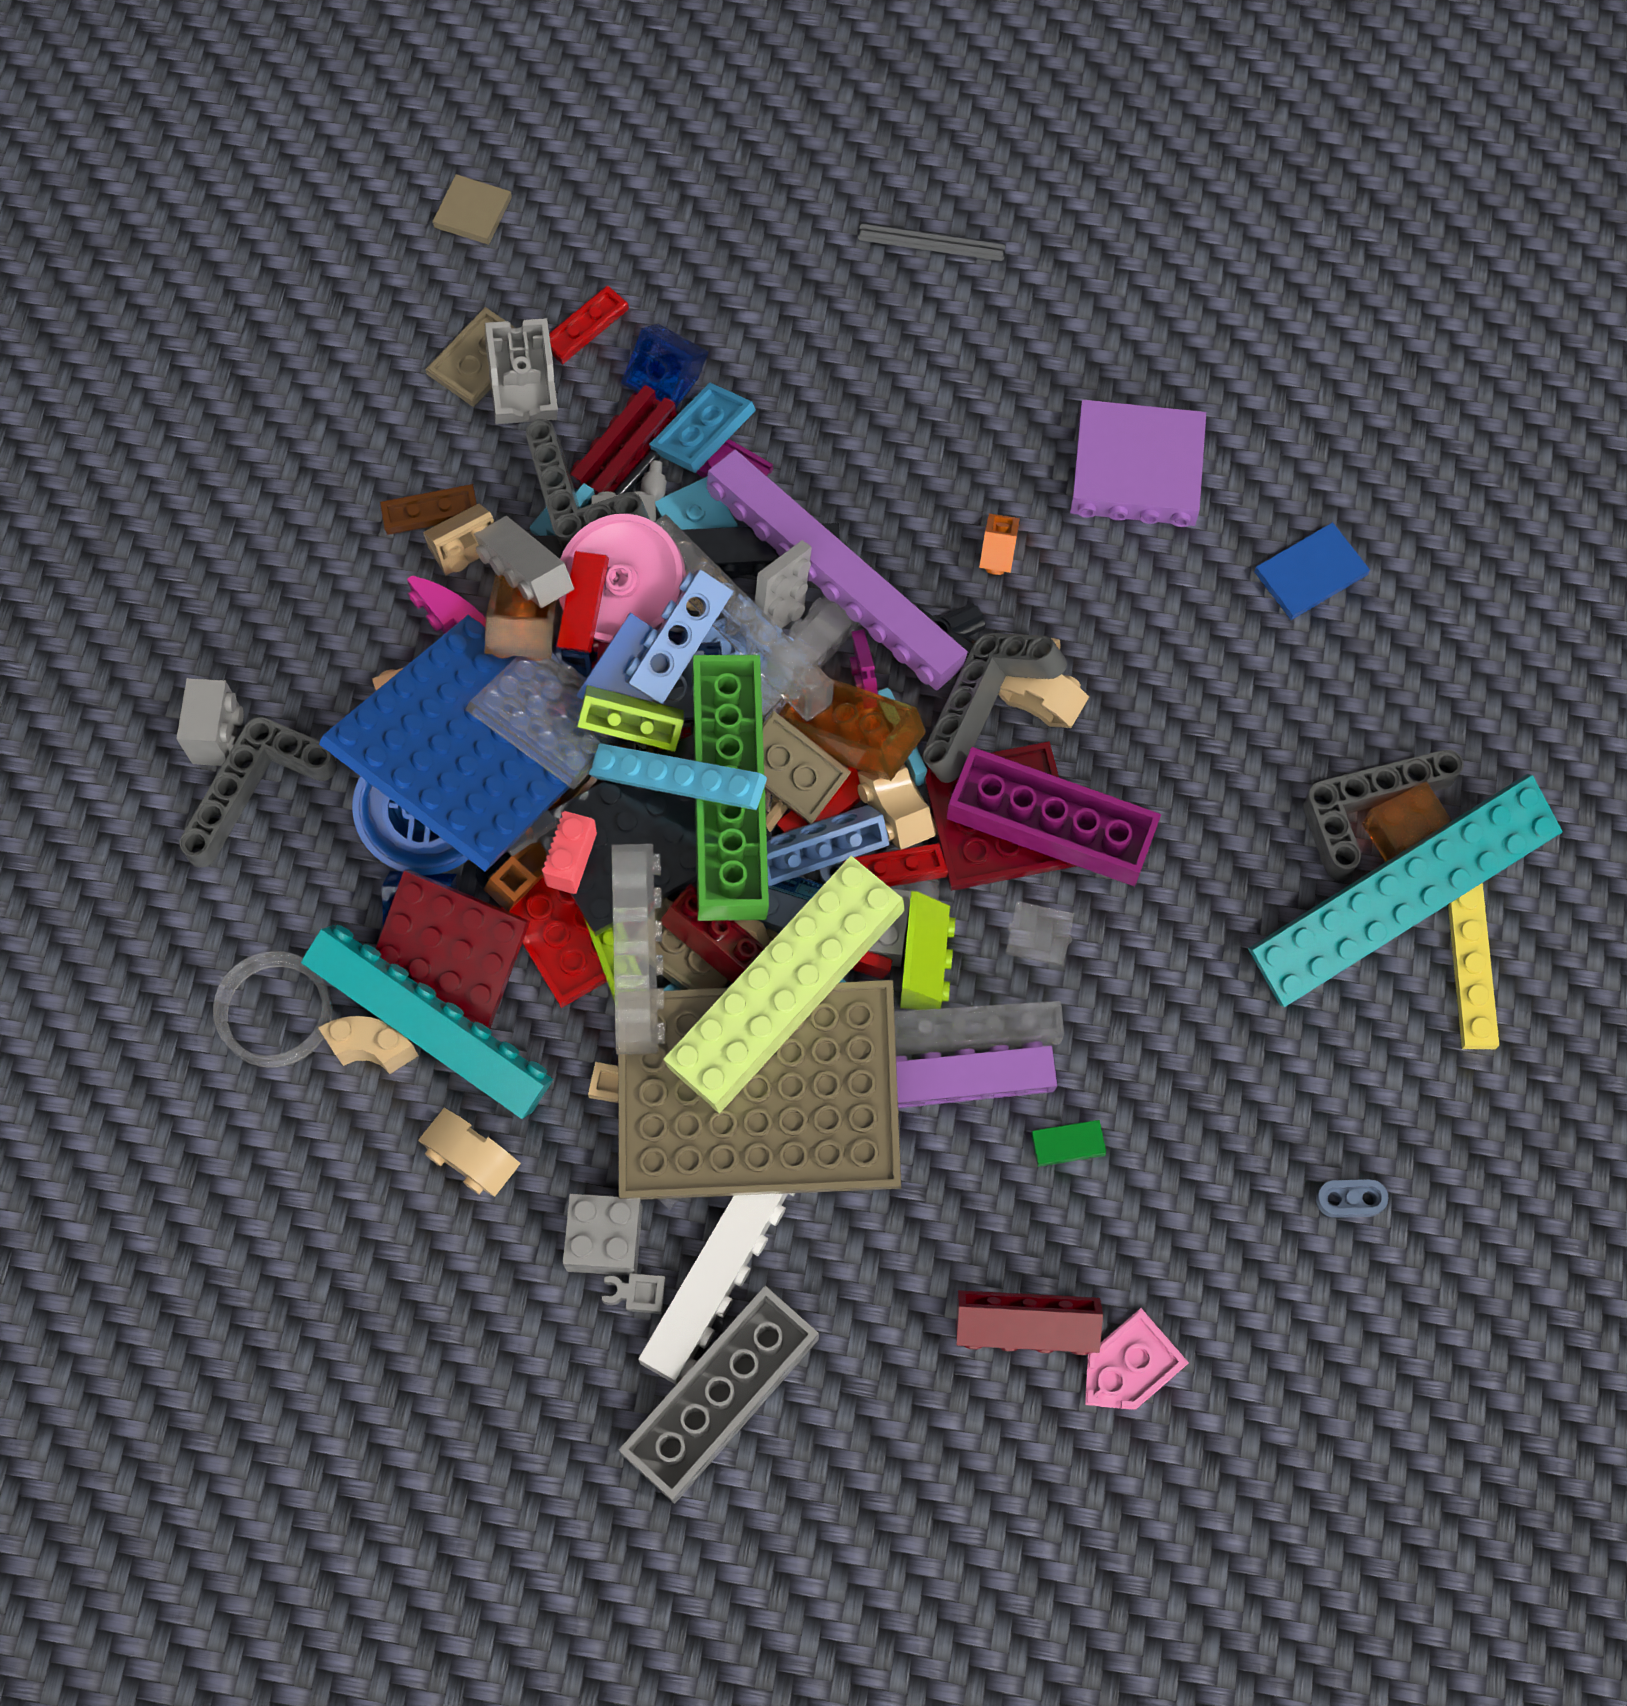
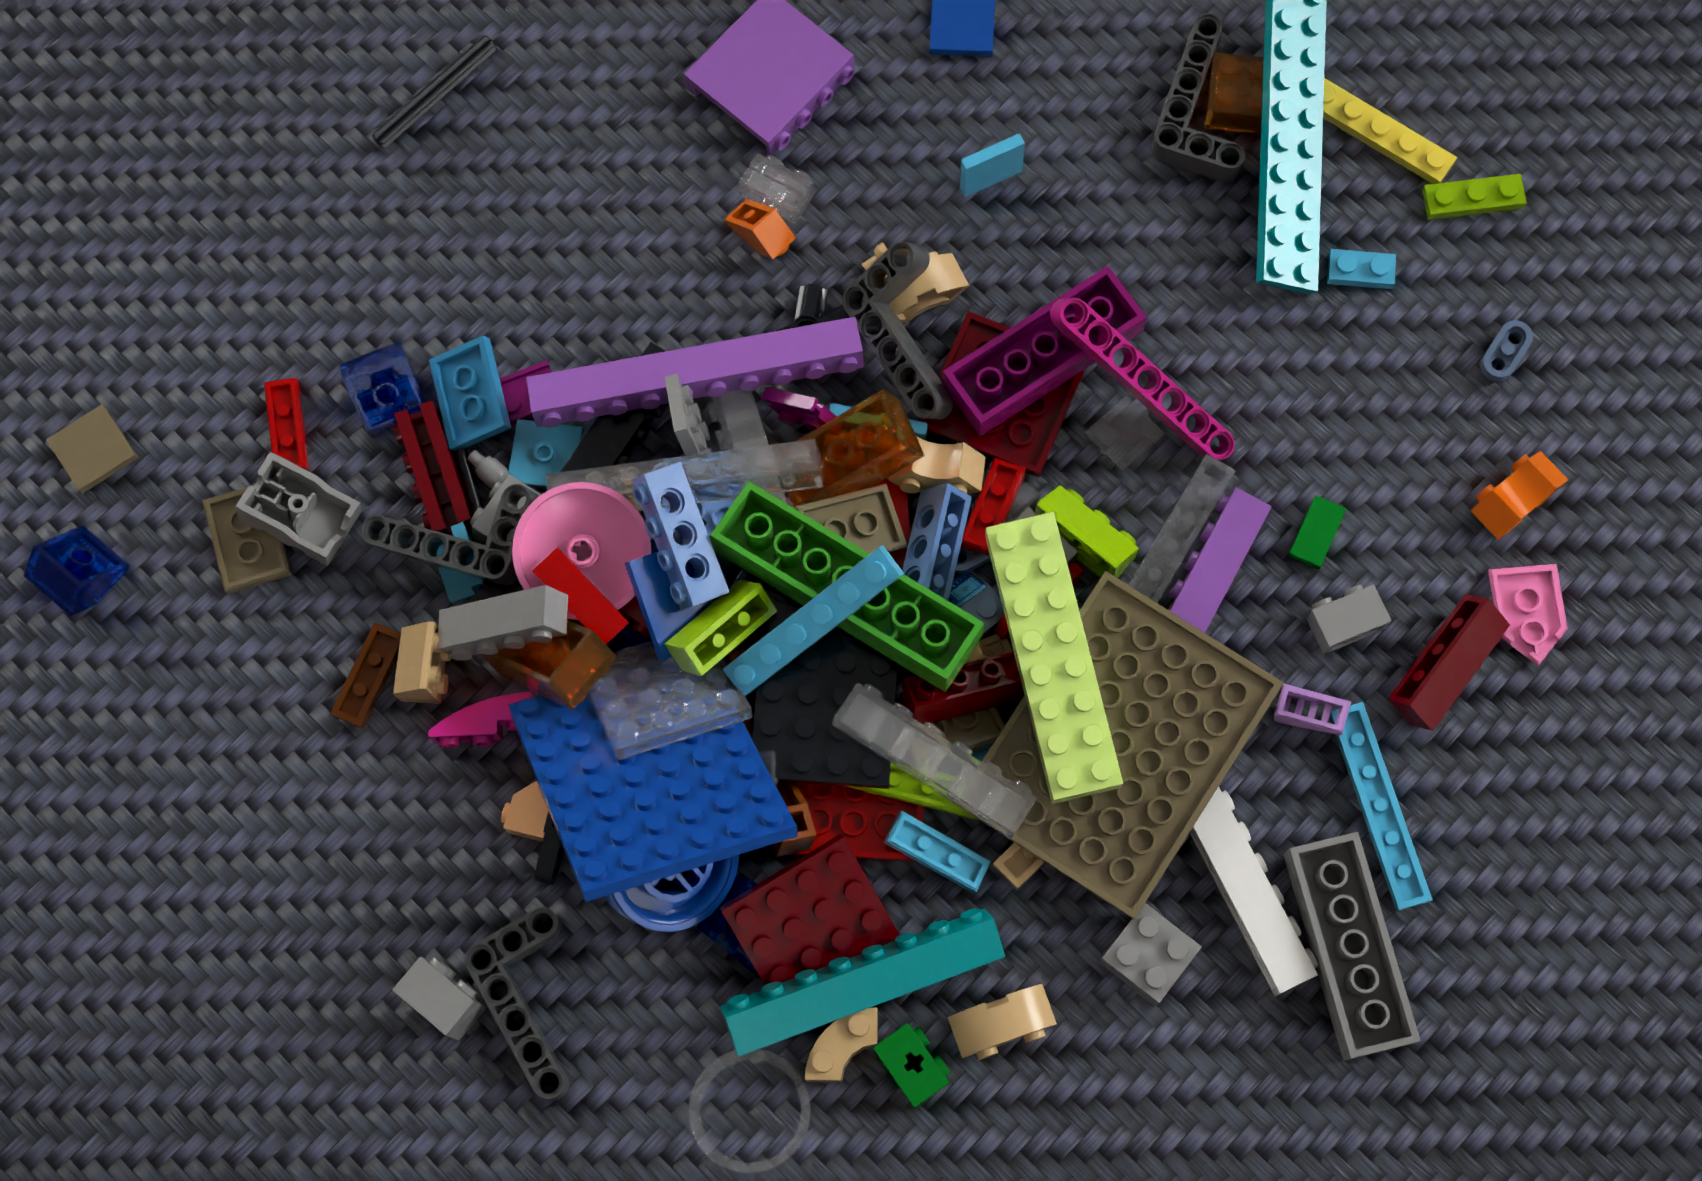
camera: 50 degrees left, 5 degrees up
(370, 259) = (74, 569): none -> clear blue slope
(387, 1088) = (893, 1055): none -> green brick
(569, 852) = (810, 758): coral brick -> none
(574, 1012) = (937, 852): none -> medium azure tile
(642, 1293) = (1219, 957): light grey plate -> none
(861, 1346) = (1381, 810): none -> medium azure plate
(899, 1208) = (1302, 695): none -> lavender slope
(1008, 1214) = (1348, 618): none -> light grey brick
(1043, 532) = (777, 187): none -> clear brick
(1078, 922) = (1127, 375): none -> dark pink beam
(1186, 675) = (992, 165): none -> medium azure tile
(1243, 1292) = (1519, 494): none -> orange brick
(1334, 1031) = (1361, 269): none -> medium azure plate
(1476, 1084) = (1474, 196): none -> lime plate

